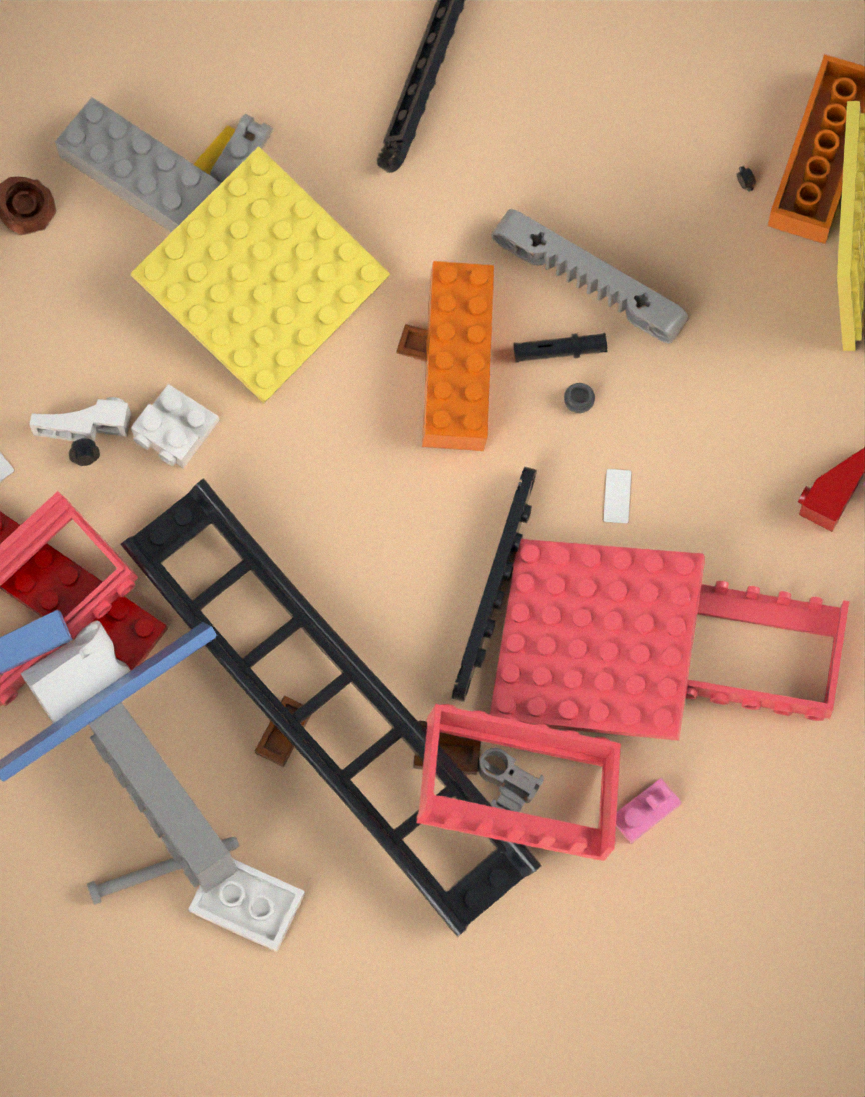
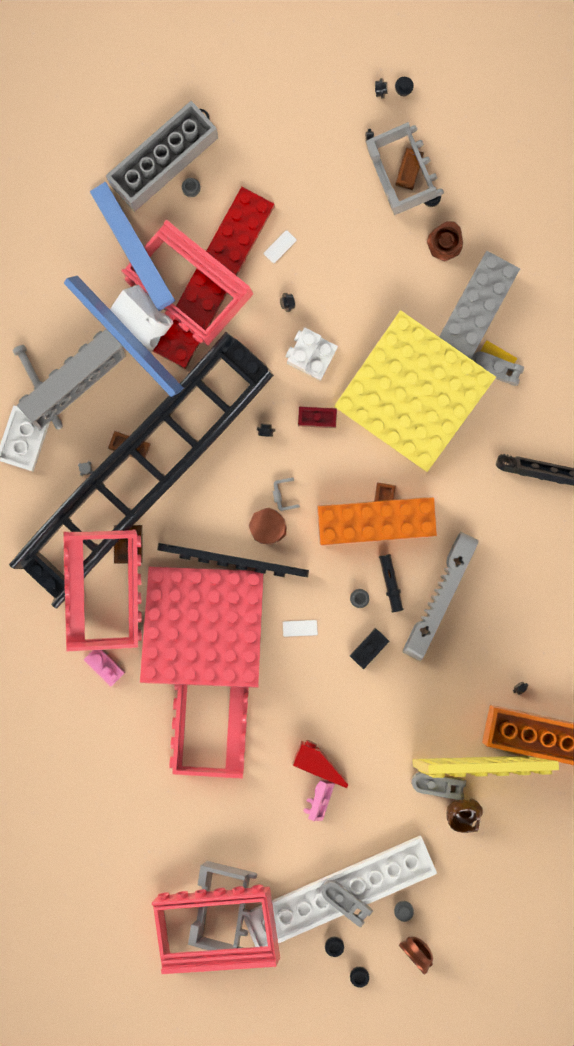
camera: 80 degrees right, 15 degrees up
(106, 417) = (312, 314): white slope -> none
(279, 428) = (317, 417): none -> dark red plate
(288, 509) = (265, 430): none -> black plate
(311, 806) = (85, 468): none -> light grey piece
(398, 505) = (277, 495): none -> light grey piece
(446, 521) = (267, 526): none -> copper hat
(517, 781) = (108, 587): light grey piece -> none
(660, 391) = (369, 648): none -> black plate

